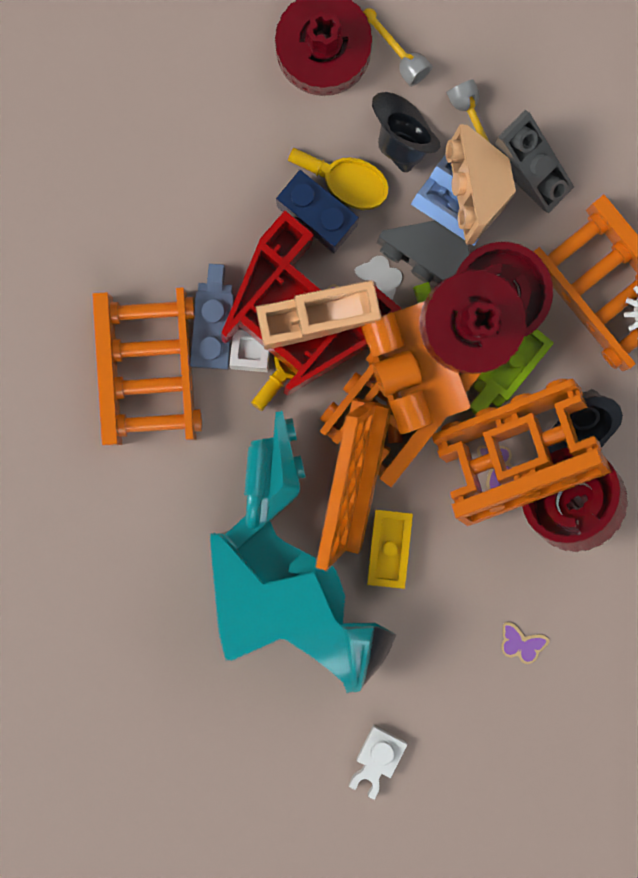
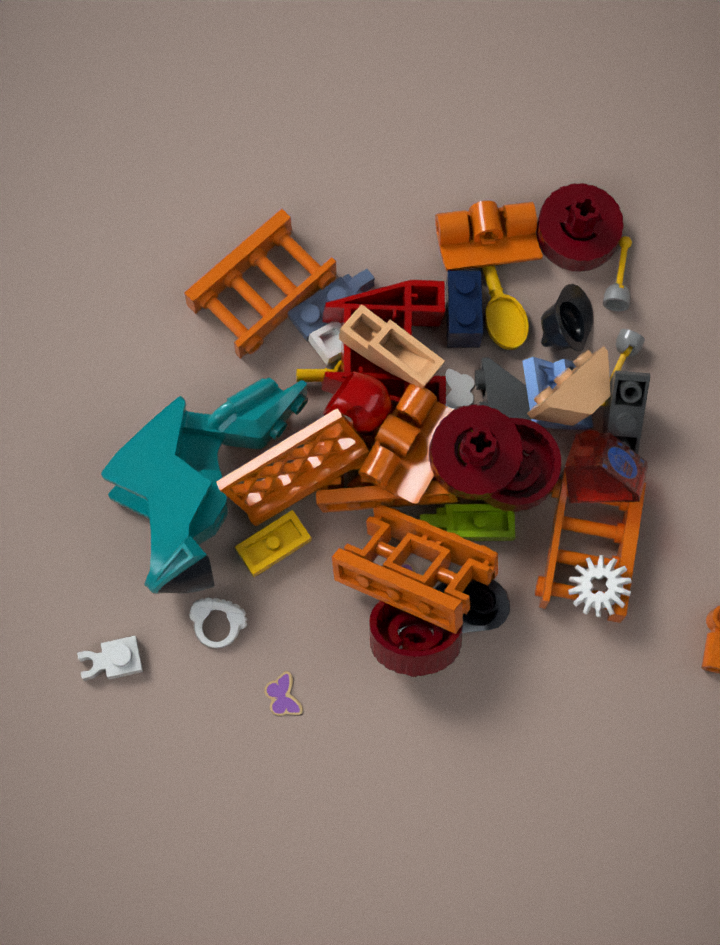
camera: 50 degrees right, 15 degrees down
(266, 131) = (488, 235): none -> orange panel
(349, 381) = (362, 400): none -> red helmet
(399, 656) = (203, 608): none -> white piece
(568, 220) = (603, 470): none -> clear red slope

